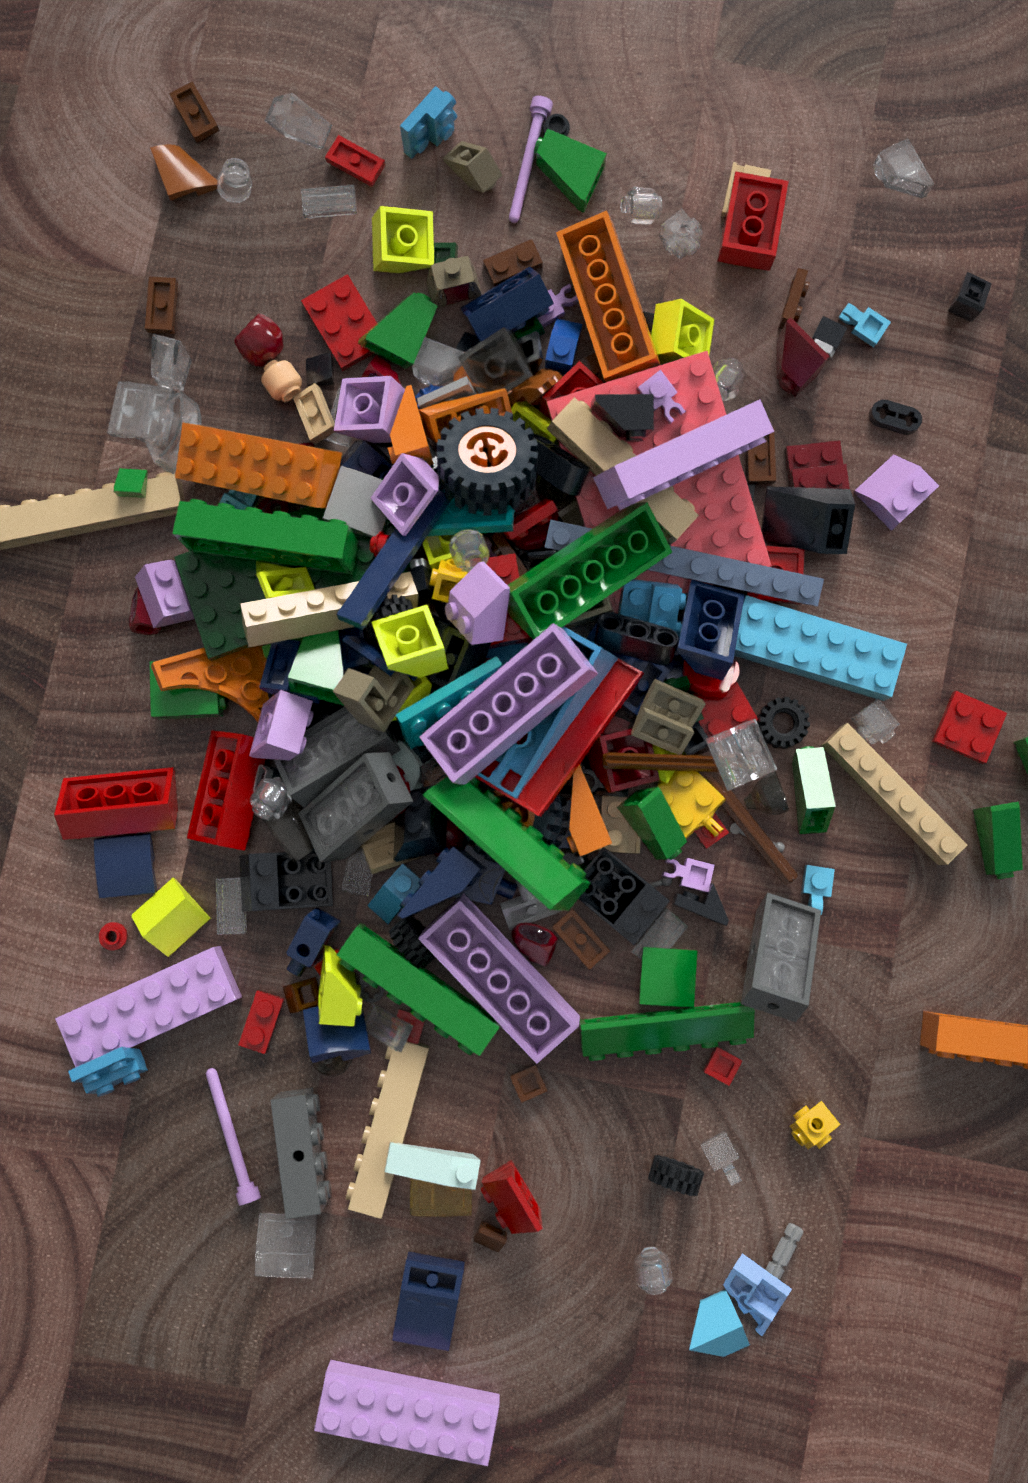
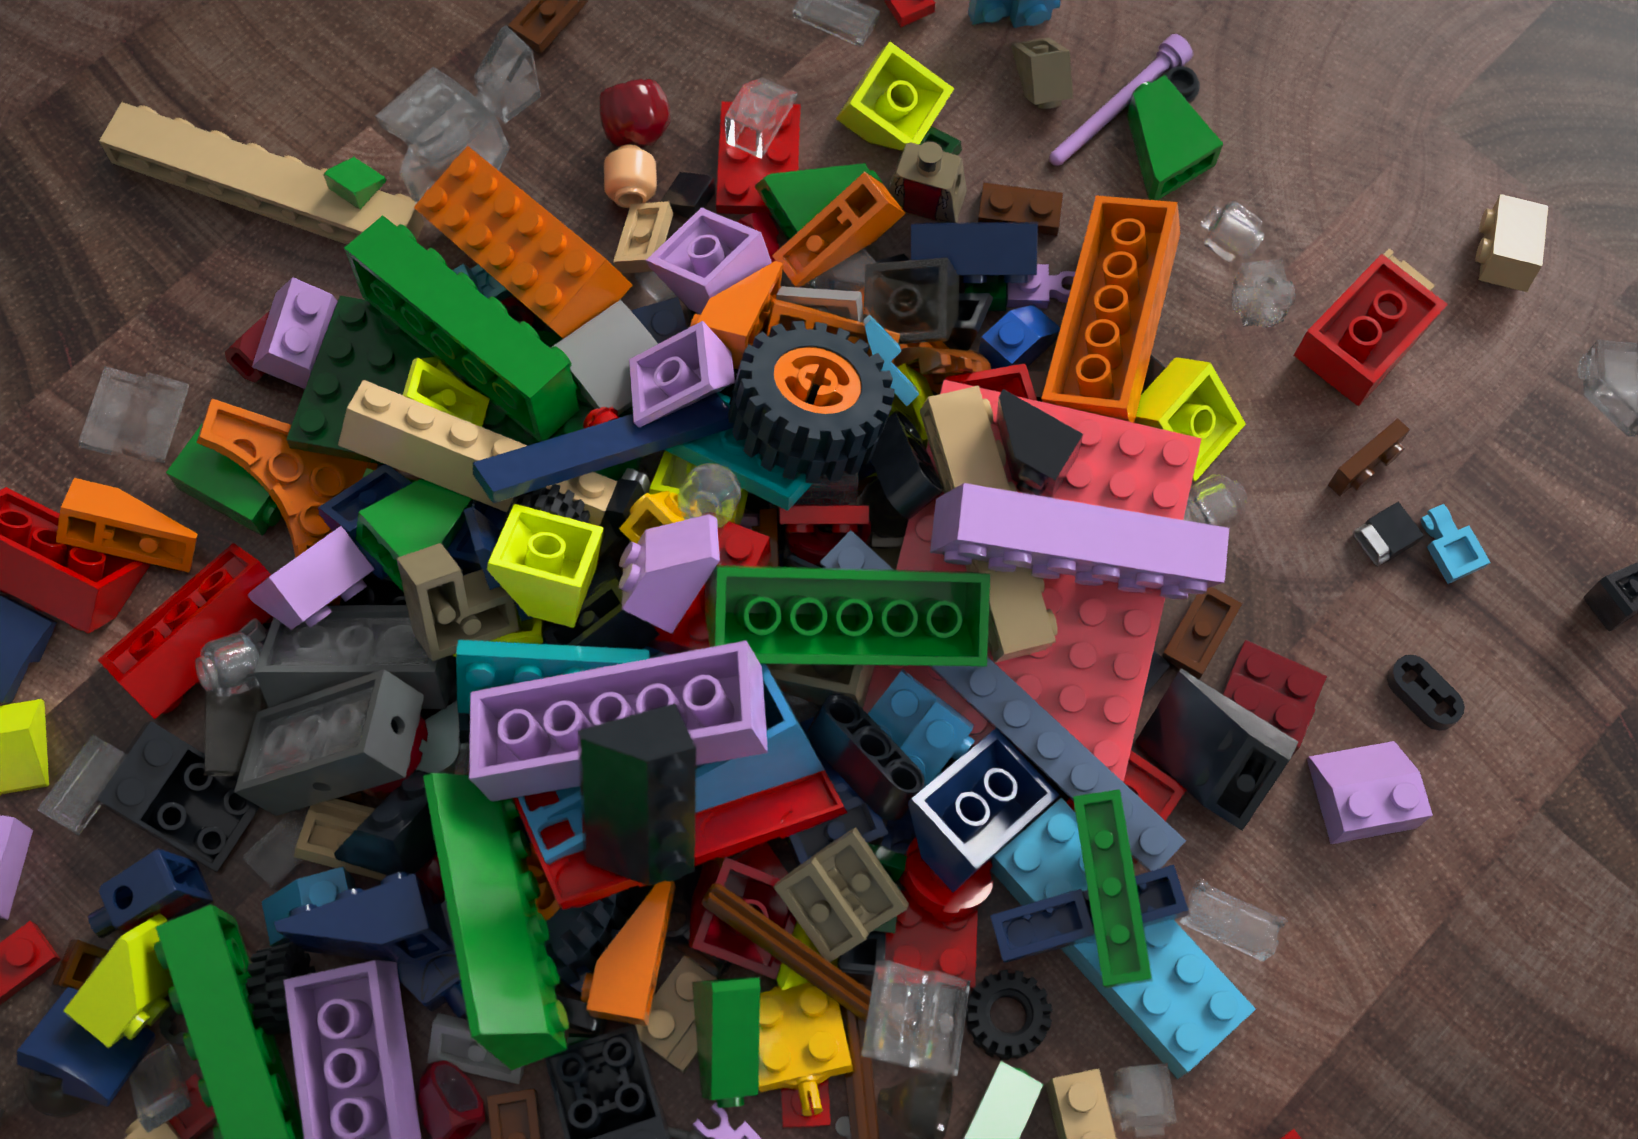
camera: 30 degrees right, 15 degrees down
(103, 694) = (133, 415): none -> clear slope
(146, 760) = (123, 526): none -> orange slope
(331, 297) = (757, 115): none -> clear slope
(428, 344) = (840, 230): none -> orange slope
(507, 403) = (888, 349): none -> medium azure slope
(552, 737) = (639, 796): none -> black slope
(663, 394) = (1102, 453): lavender plate -> none
(797, 358) = (1330, 536): dark red slope -> none
(799, 648) = (1069, 920): none -> dark blue slope
(800, 117) = (1512, 242): none -> brick
(805, 629) = (1112, 889): none -> green plate
(866, 603) = (1232, 921): none -> clear hinge

